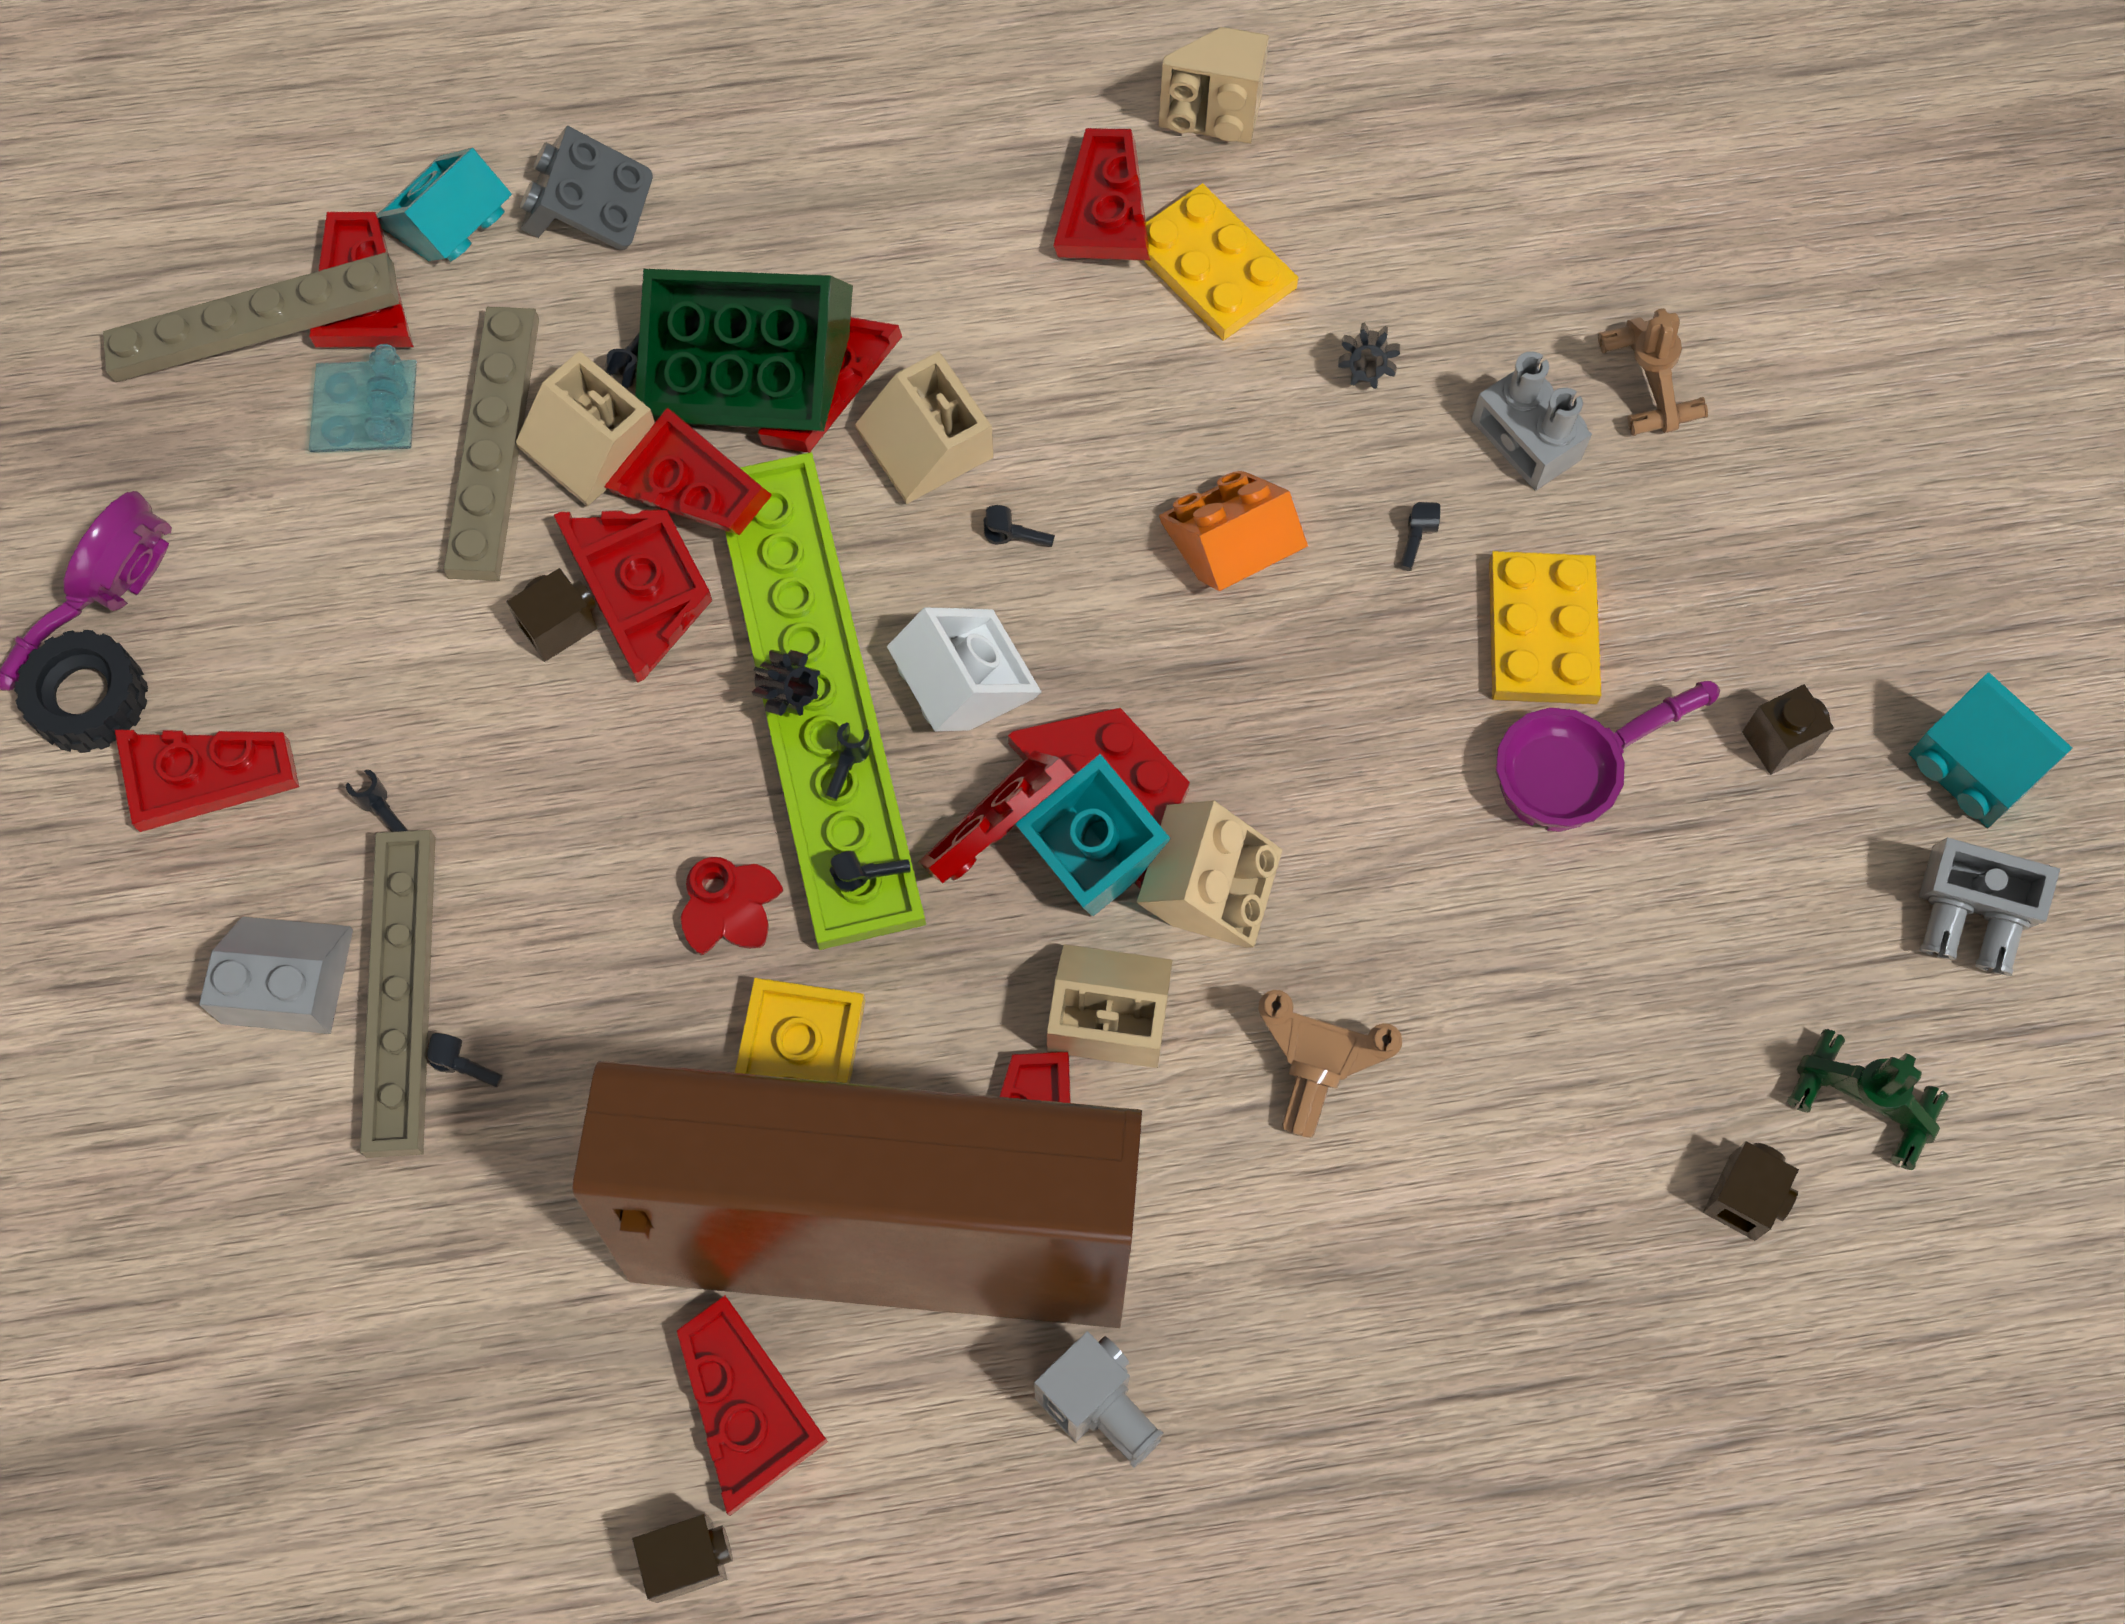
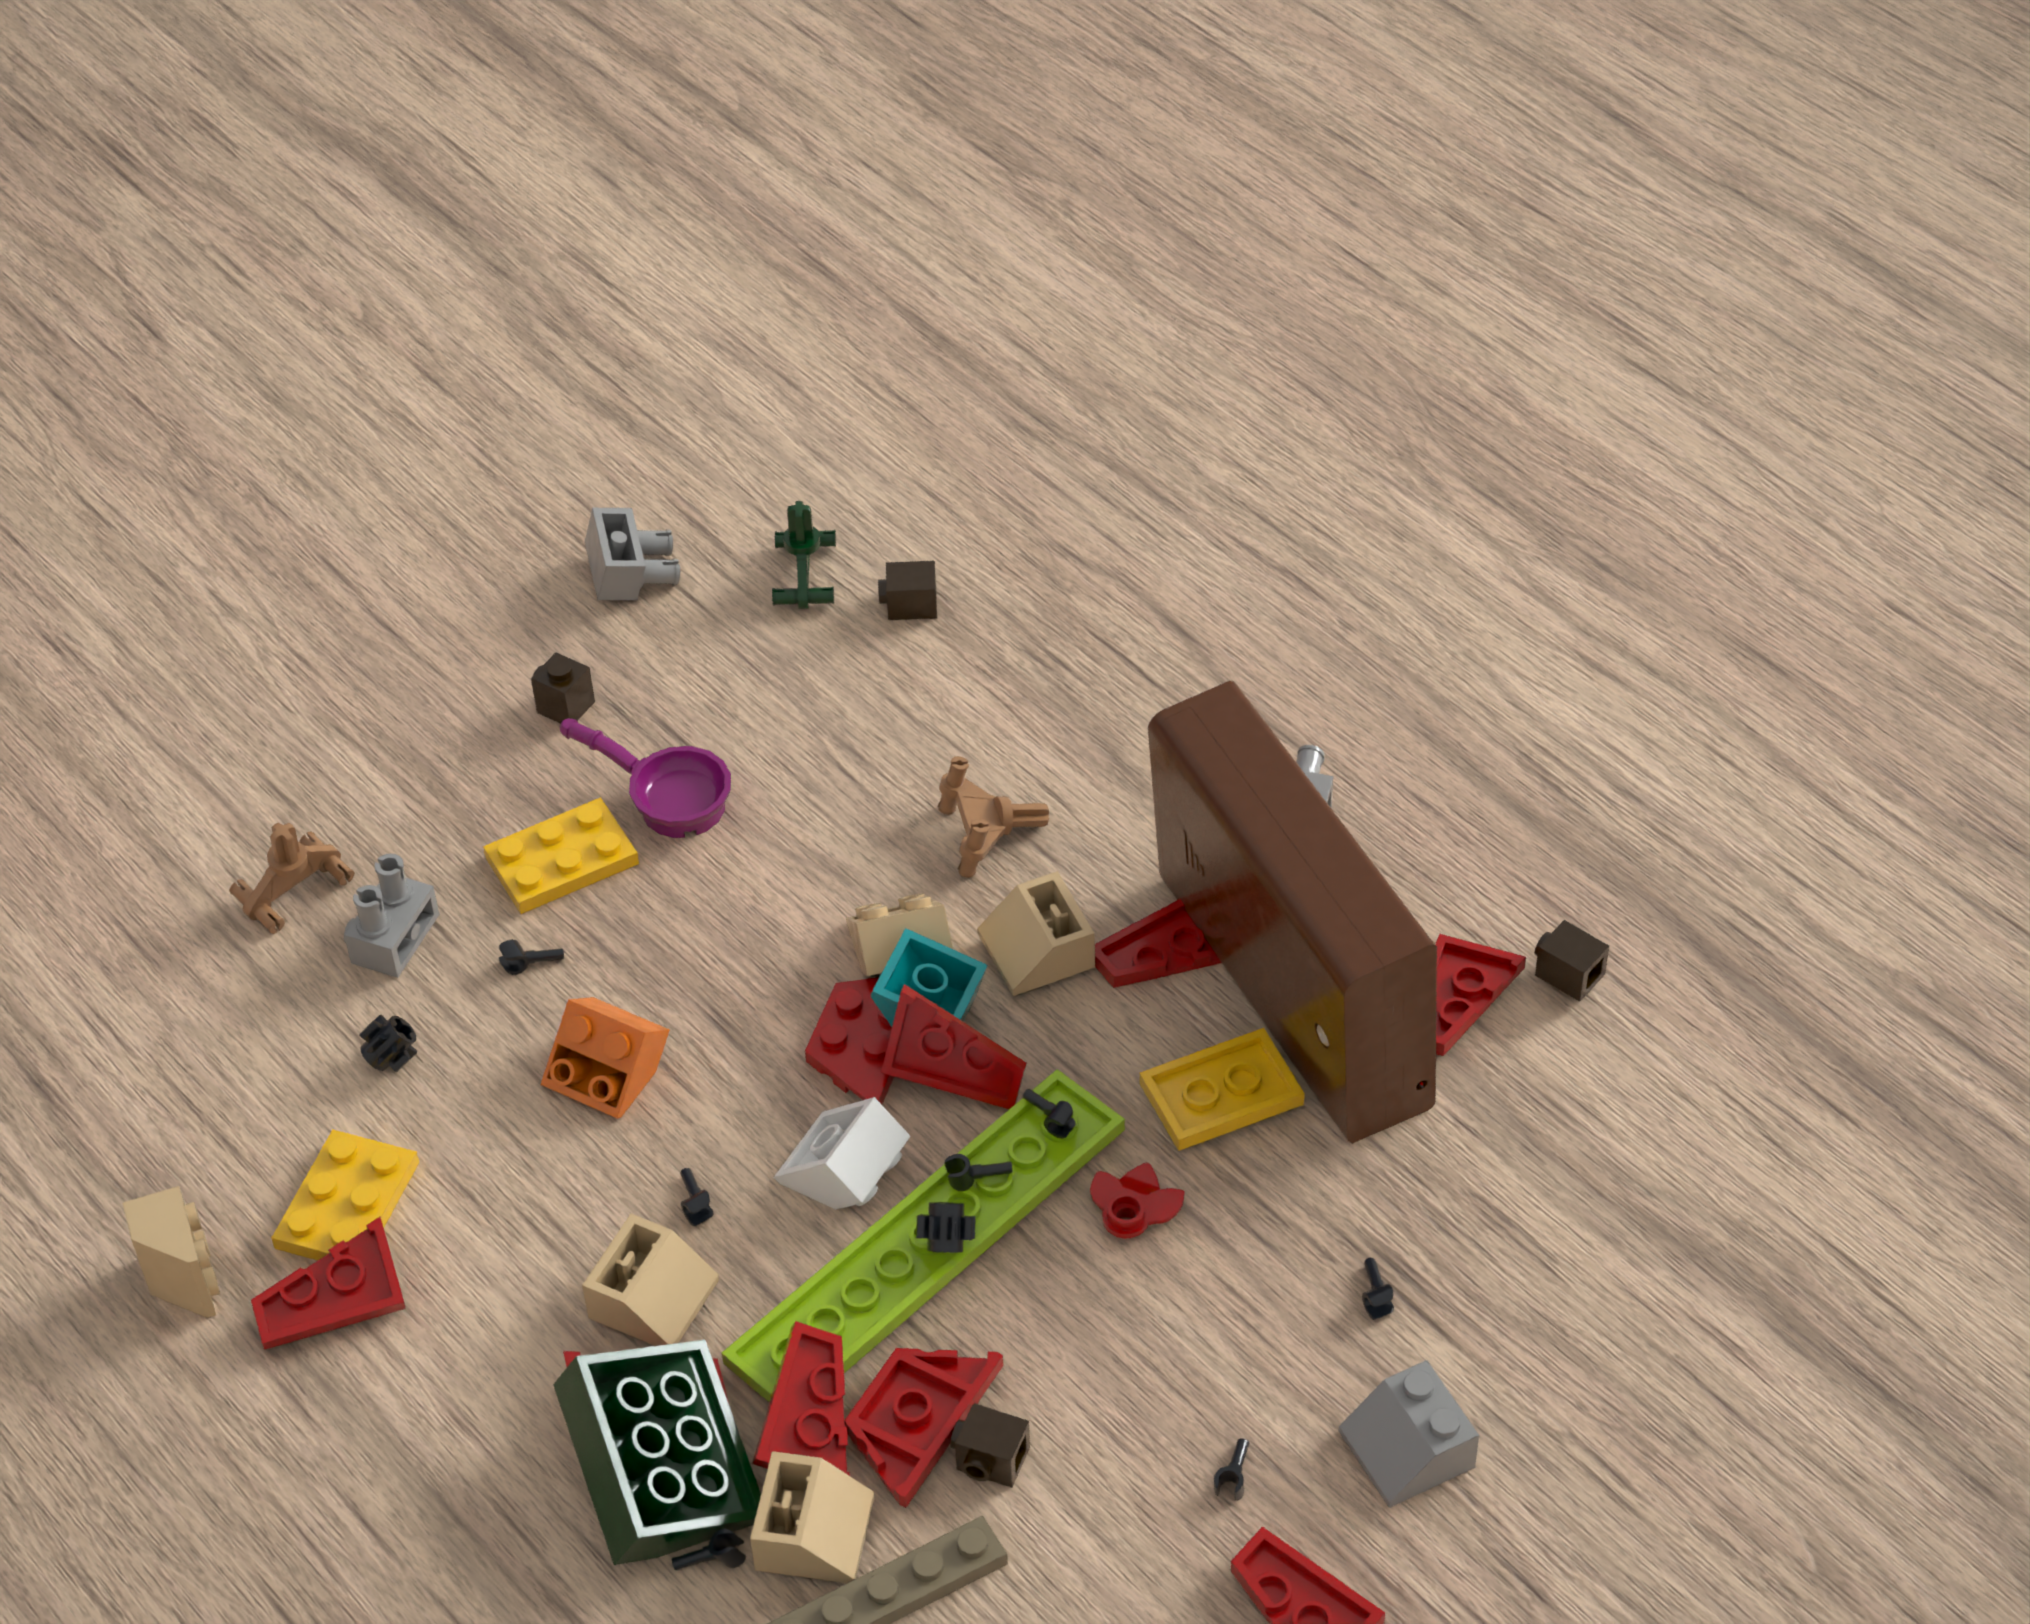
camera: 120 degrees left, 20 degrees down
(398, 995) = (1358, 1355): dark tan plate -> none
(1989, 750) = (515, 584): teal slope -> none

